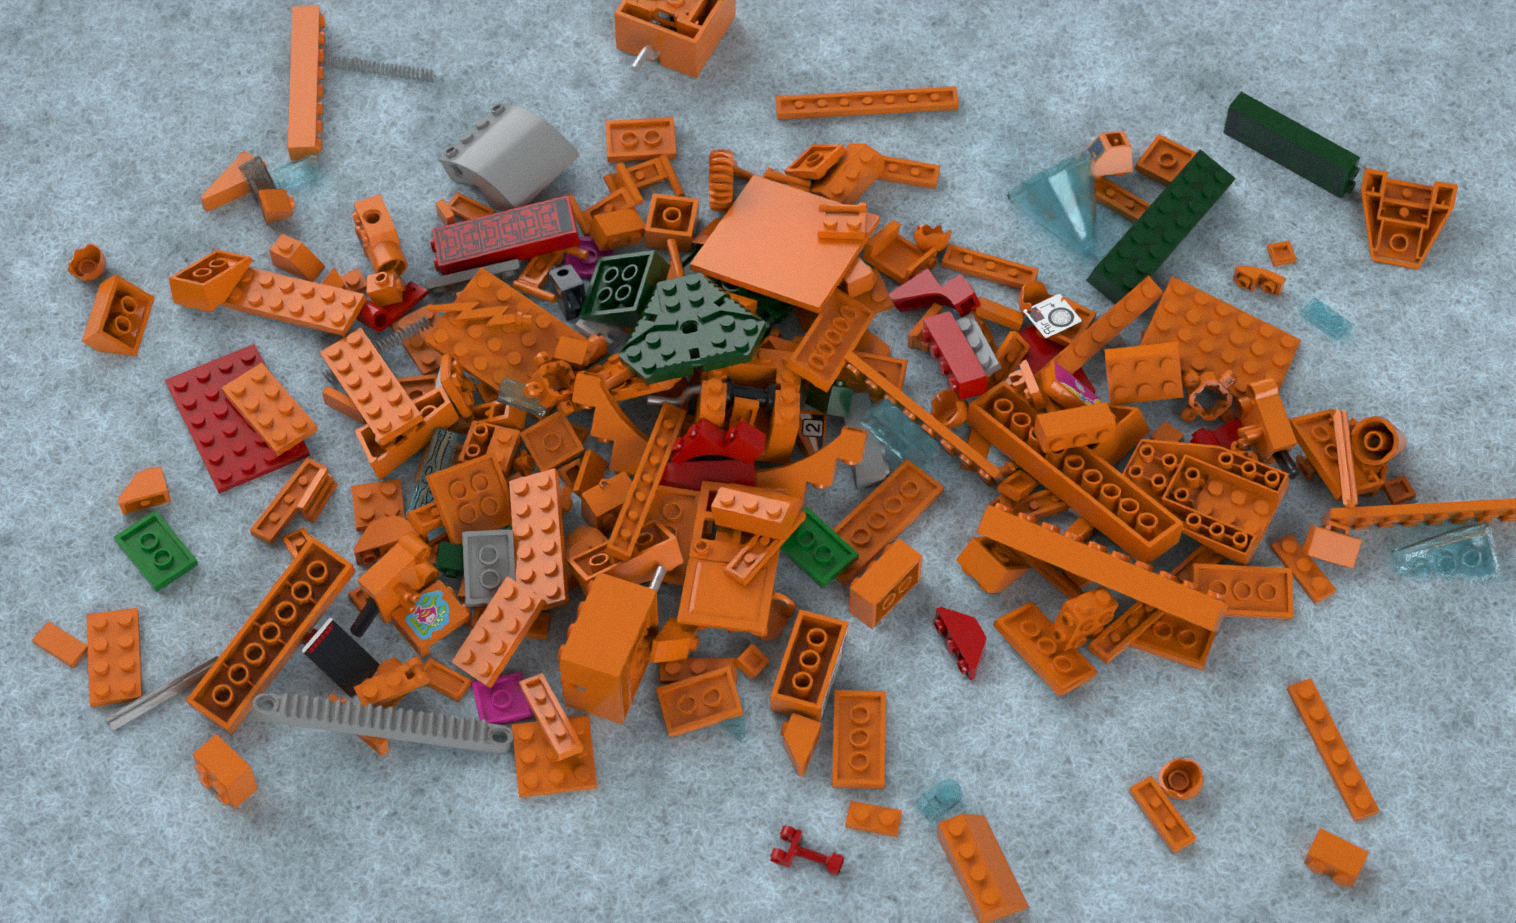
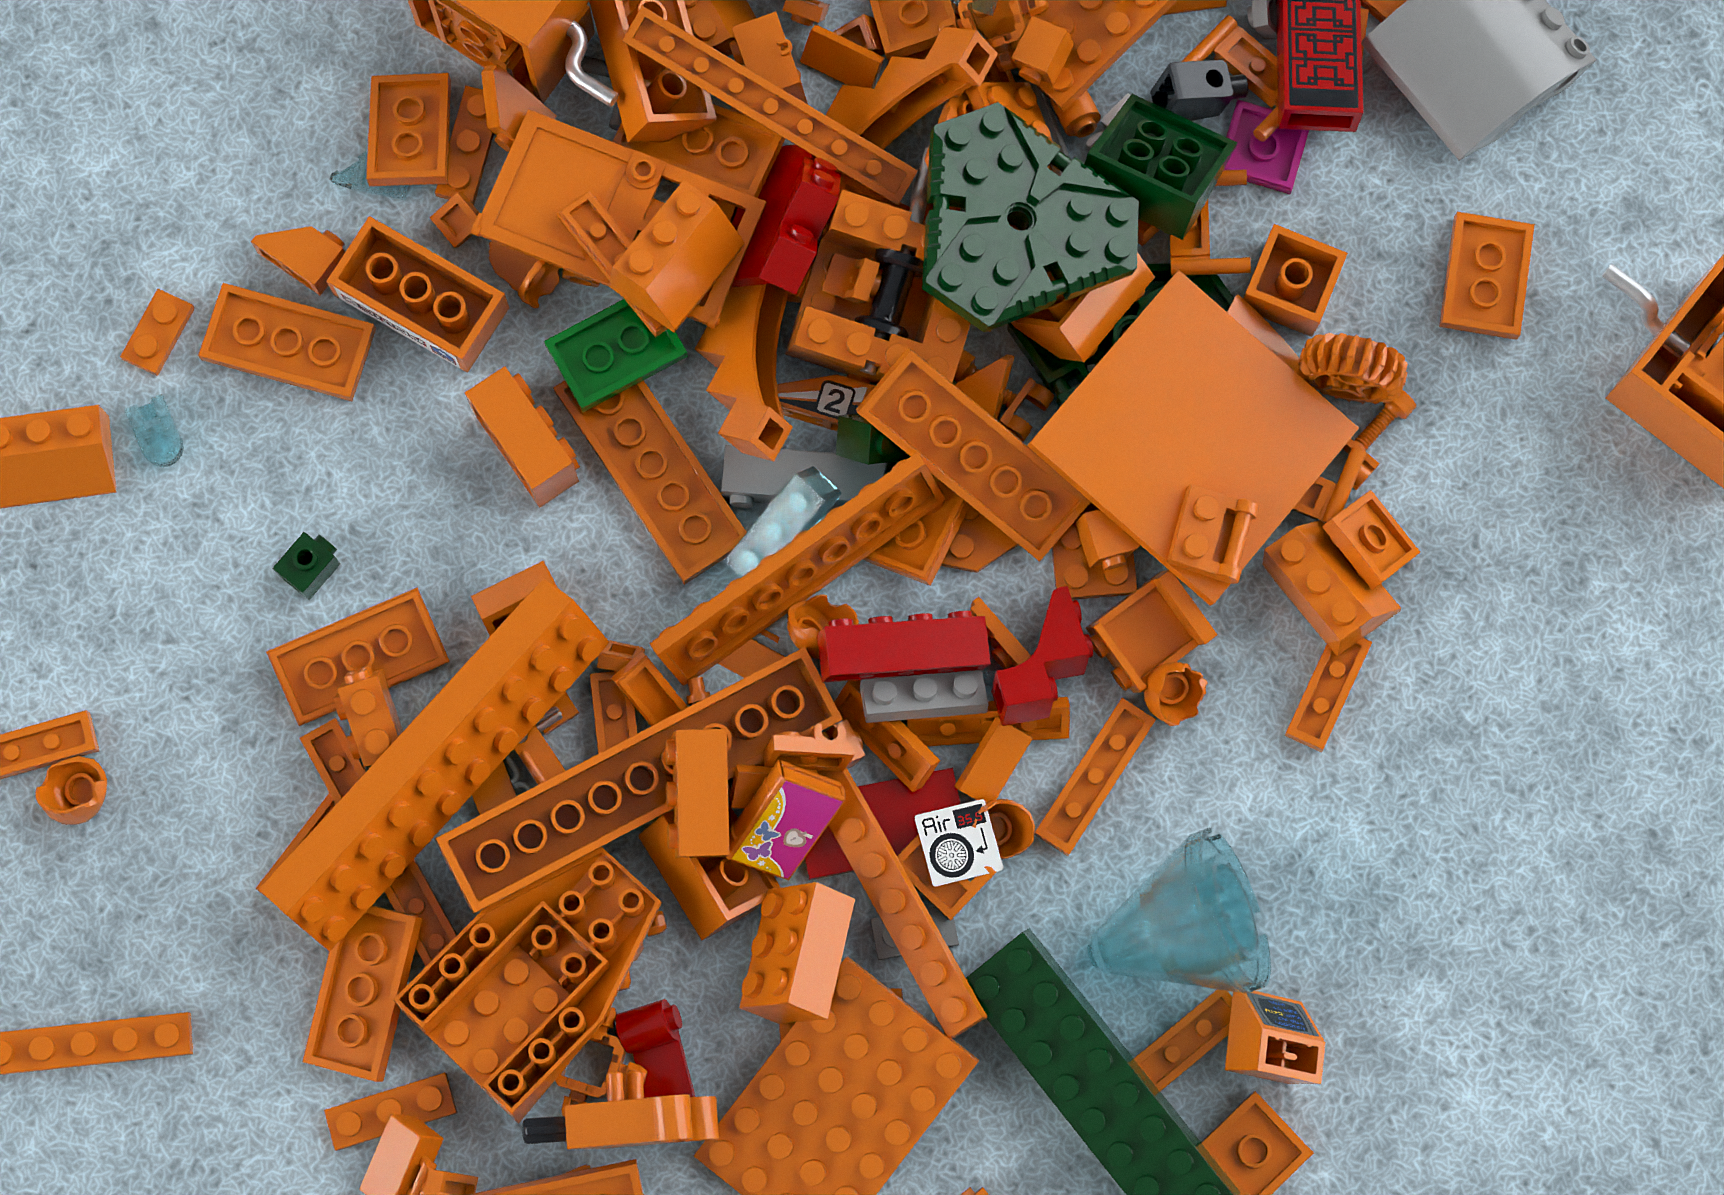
camera: 100 degrees right, 20 degrees up
(617, 229) = (1298, 191): orange brick -> none
(622, 199) = (1346, 190): orange plate -> none
(647, 175) = (1405, 255): orange plate -> none
(790, 834) = (135, 185): red bar -> none
(867, 103) = (1489, 667): orange plate -> none
(963, 638) = (405, 536): red slope -> none
(998, 688) = (307, 564): none -> dark green brick
(1167, 433) = (692, 970): orange tile -> none
(1196, 385) = (735, 1055): orange piece -> none

